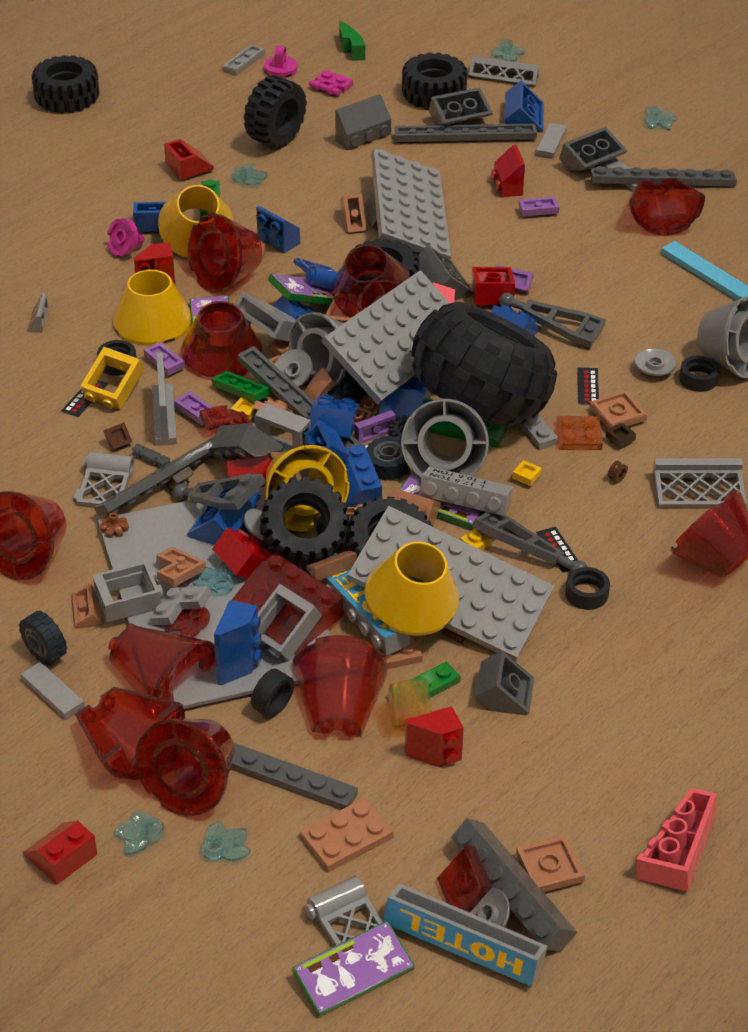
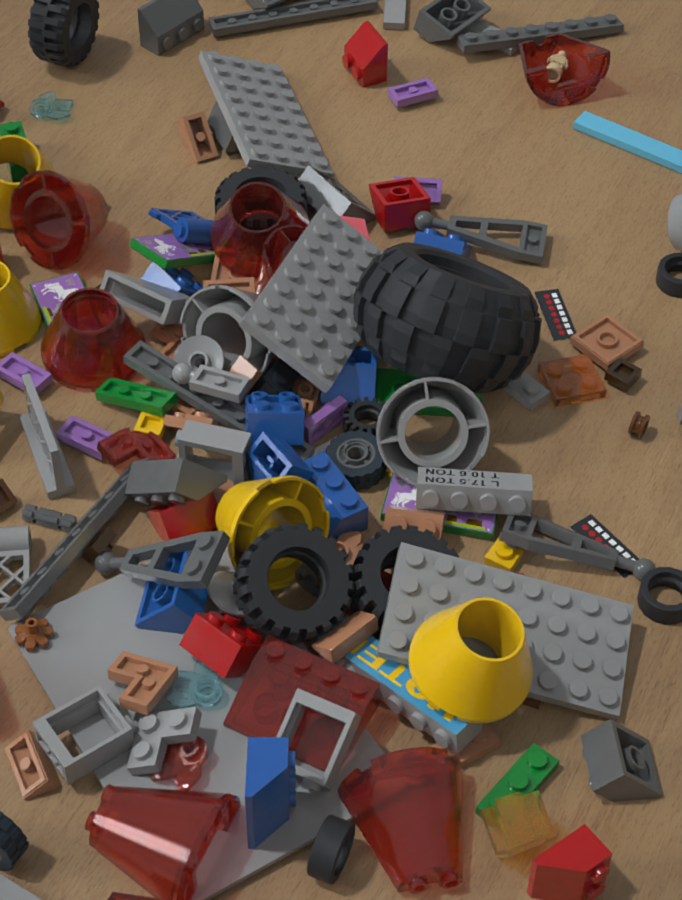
camera: 15 degrees left, 5 degrees up
(276, 230) = (112, 175): blue slope -> none
(297, 382) = (212, 381): none -> light grey plate
(526, 473) = (532, 448): yellow plate -> none
(655, 362) = (625, 270): light grey dish -> none
(659, 206) = (557, 63): none -> tan piece

